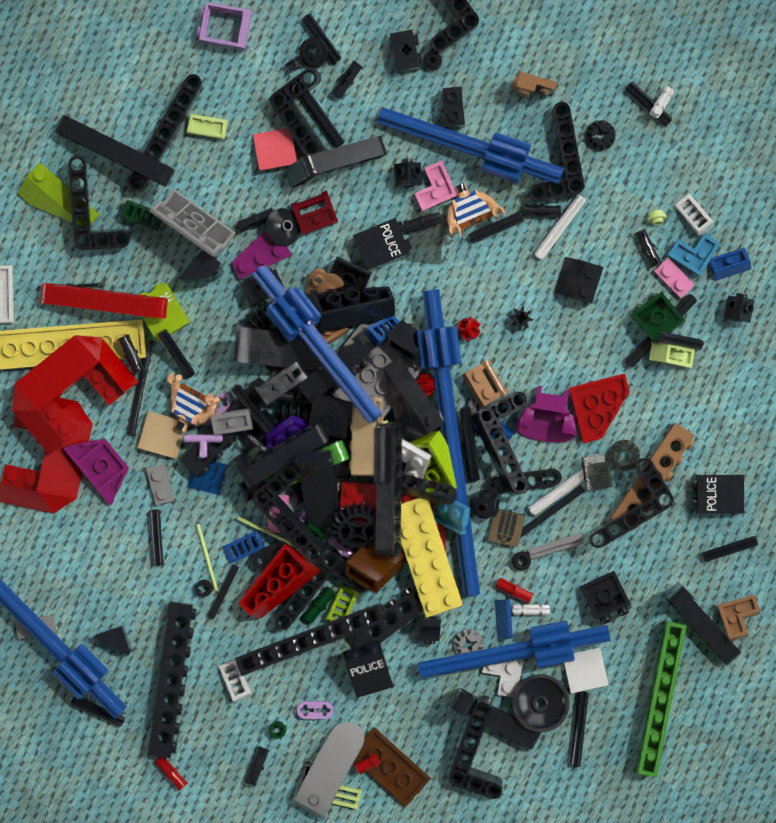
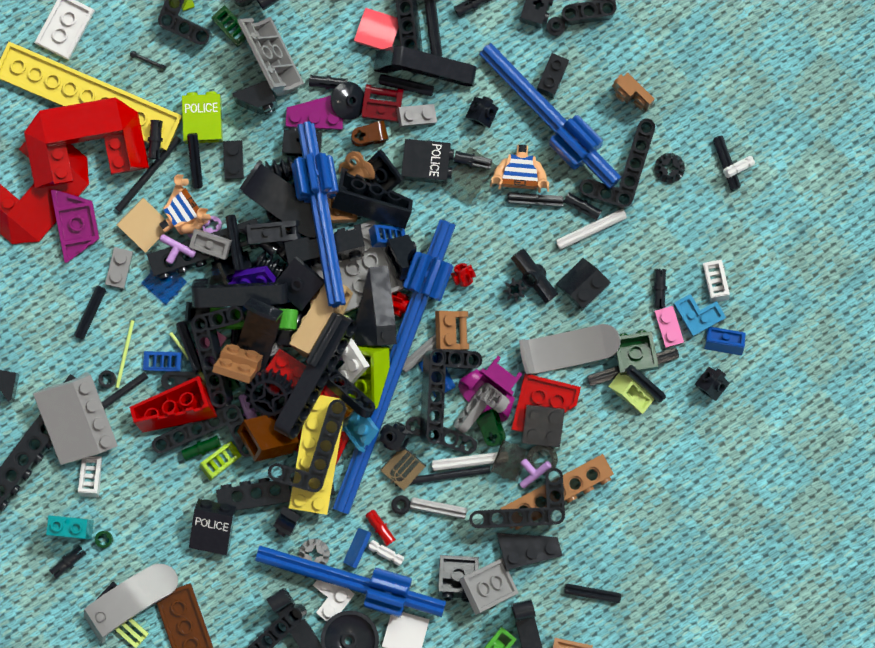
camera: 25 degrees right, 5 degrees down
(104, 300) = (157, 80): red beam -> none
(197, 639) = (75, 419): none -> light grey piece
(209, 334) = (233, 159): none -> black plate
(243, 736) = (70, 527): none -> teal window
(261, 521) = (189, 346): none -> black axle
(311, 639) = (176, 472): black brick -> none
(314, 515) = (238, 363): none -> medium nougat plate
(315, 714) = (143, 543): lavender beam -> none
(321, 245) = (373, 134): none -> reddish brown piece
(328, 184) = (405, 84): none -> black axle
(351, 208) = (416, 115): none -> light grey plate
(368, 763) = (166, 612): red pin -> none
(435, 555) = (318, 454): none -> black beam
(441, 188) = (503, 141): bright pink plate -> none
(469, 444) = (410, 376): black axle -> none
(532, 296) = (534, 275): none -> black piece
(545, 427) = (484, 396): none -> light grey beam
(563, 449) = (490, 425): none -> dark green piece
(597, 344) = (569, 348): none -> light grey piece
(609, 425) = (542, 425): none -> black plate
(624, 471) = (534, 473): none -> lavender piece
(637, 592) = (488, 586): none -> light grey plate
(653, 541) = (526, 550): none -> black wing
(656, 217) = (681, 265): yellowish green plate -> none
(718, 493) = (608, 538): black brick -> none

